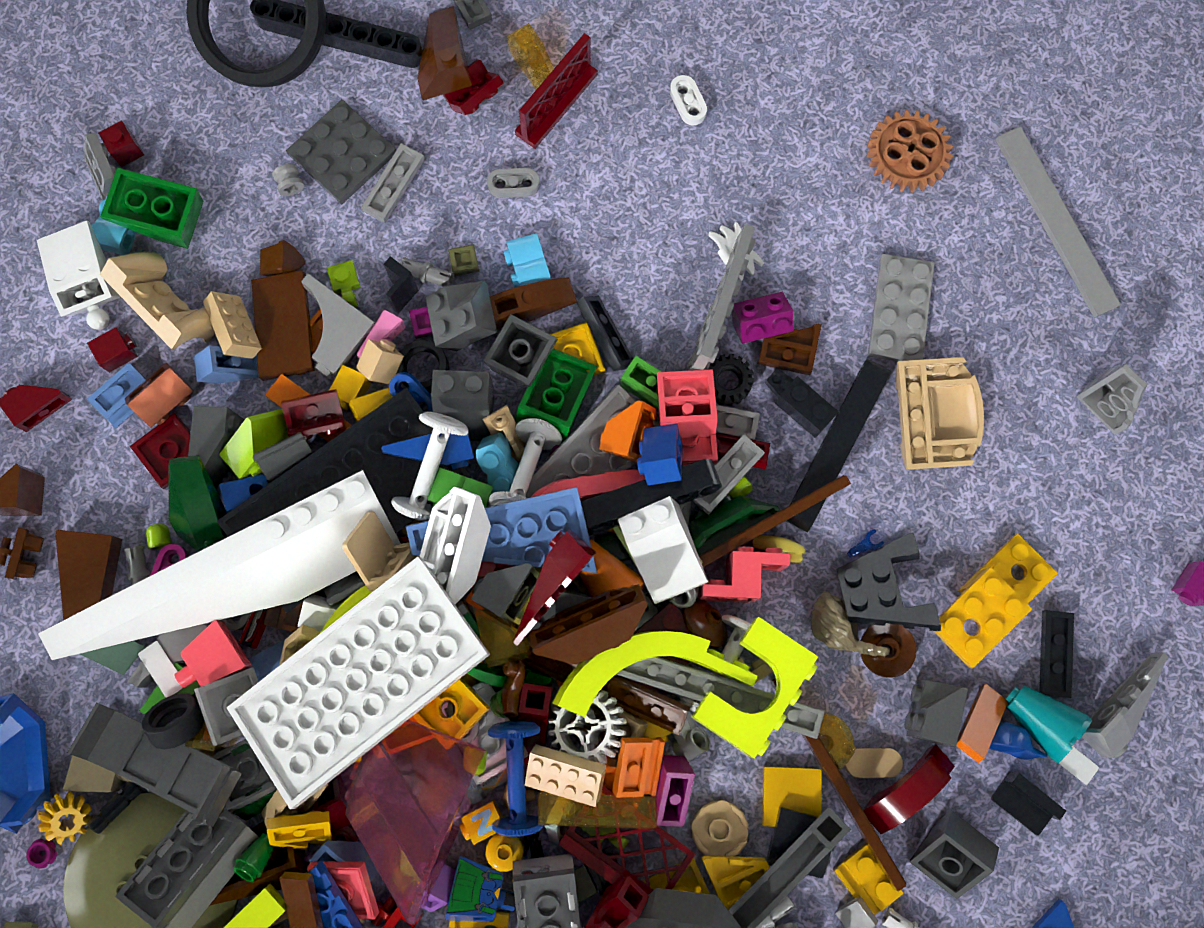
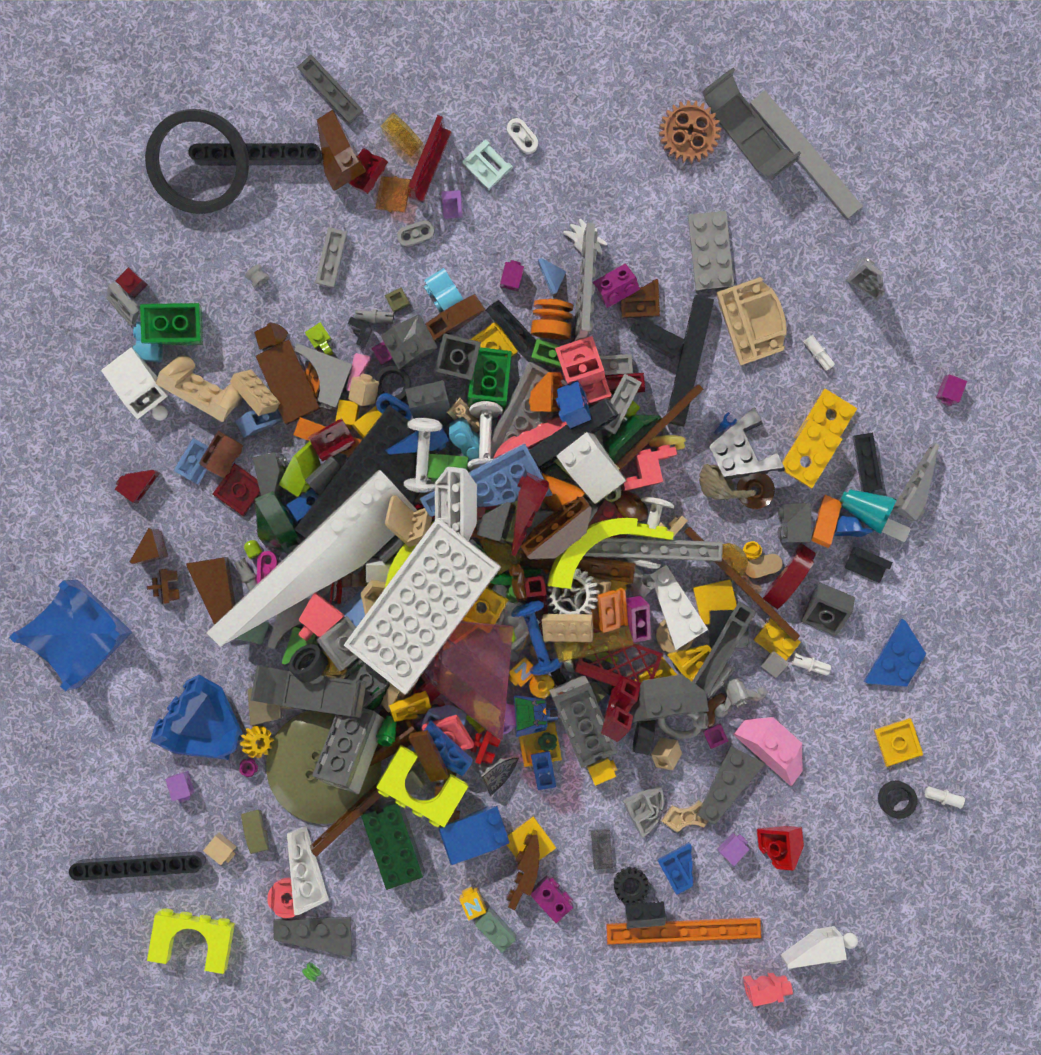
camera: 10 degrees left, 10 degrees up
(113, 349) = (178, 431): dark red brick -> none
(114, 807) = (285, 727): black axle -> none
(160, 668) = (286, 633): white sticker -> none
(341, 151) = (287, 243): dark grey plate -> none
(498, 127) = (393, 194): none -> clear orange piece
(572, 158) = (452, 204): none -> medium lavender panel
(625, 268) = (512, 275): none -> magenta brick
(626, 128) = (482, 169): none -> light aqua plate
(663, 336) = (552, 315): none -> orange wheel
(680, 283) = (552, 274): none -> medium blue slope
(734, 799) = (680, 615): none -> white wing
(744, 376) = (615, 332): black tyre -> none
(790, 666) = (693, 519): neon yellow arch -> none
(864, 735) = (752, 550): none -> yellow plate
(984, 164) = (747, 128): none -> dark grey windscreen
(1019, 482) = (819, 352): none -> white axle

